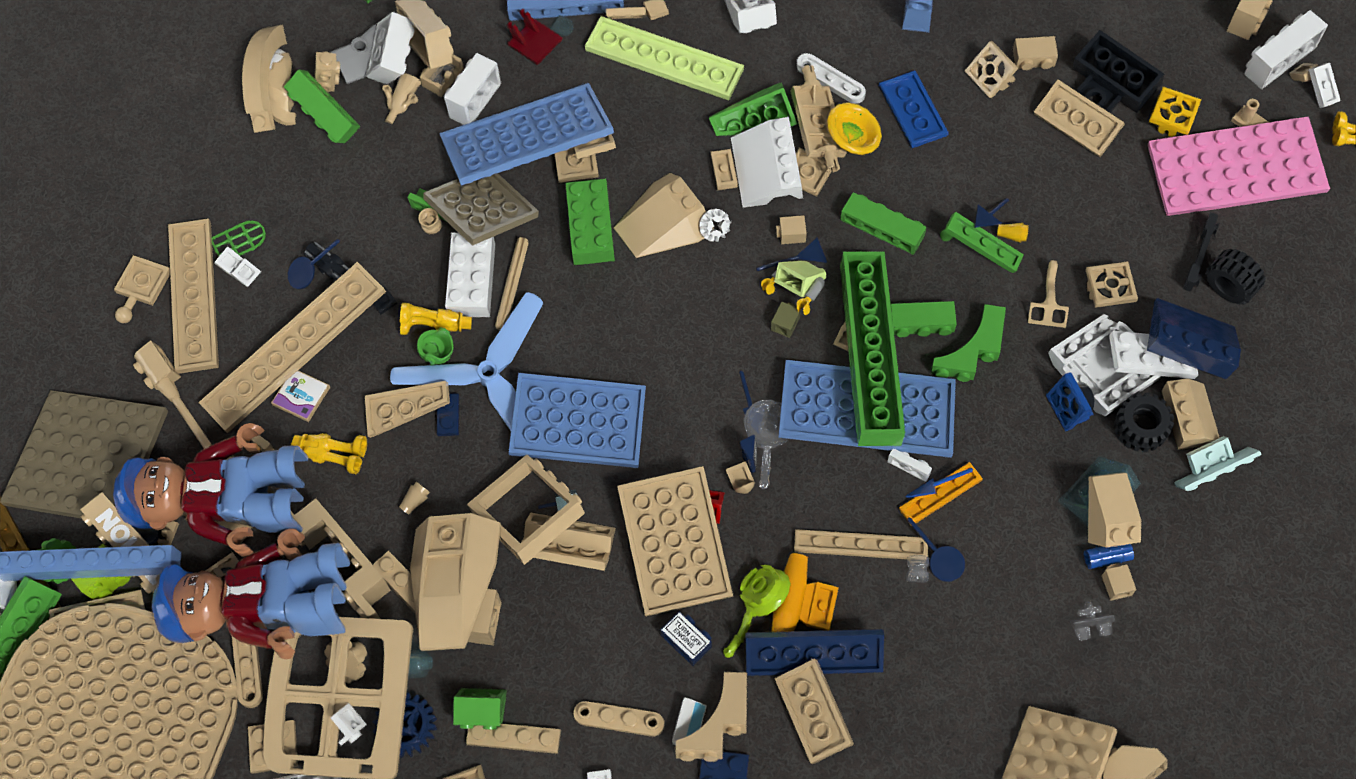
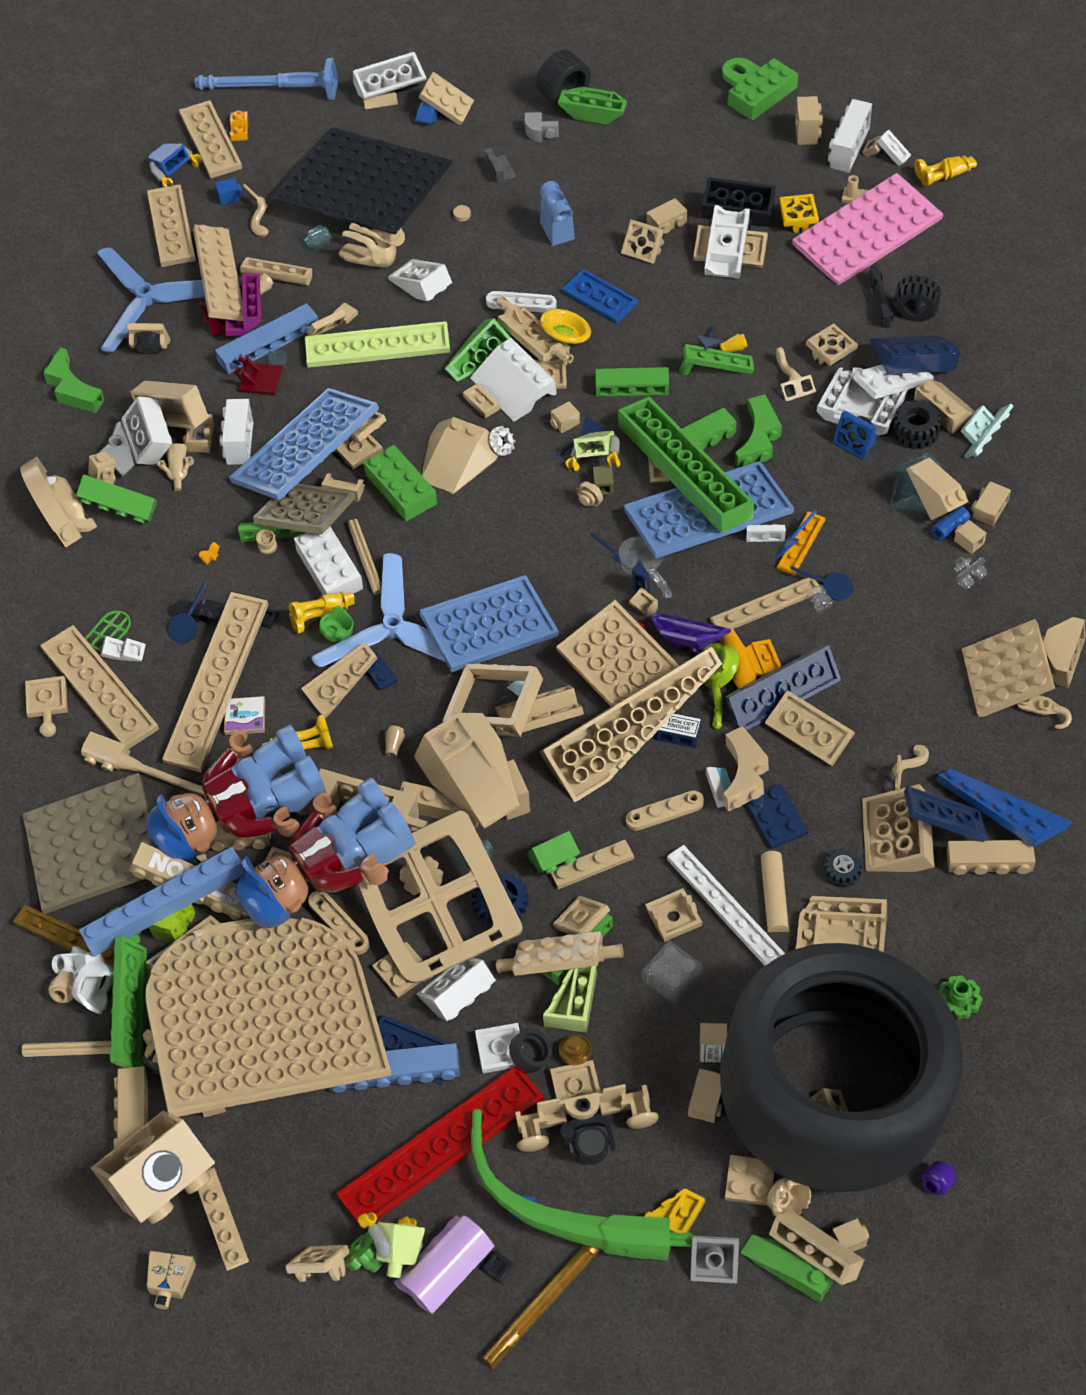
camera: 30 degrees left, 10 degrees down
(349, 723) = (460, 909): white bracket -> none
(372, 208) = (211, 554): none -> light orange piece
(537, 197) = (346, 486): none -> tan hinge
(598, 615) = (605, 743): none -> tan wedge
(757, 535) = (688, 632): none -> dark purple wedge
(760, 329) = (589, 494): none -> tan plate
(1064, 130) = (726, 258): none -> white piece
(1165, 555) = (990, 503): none -> tan brick

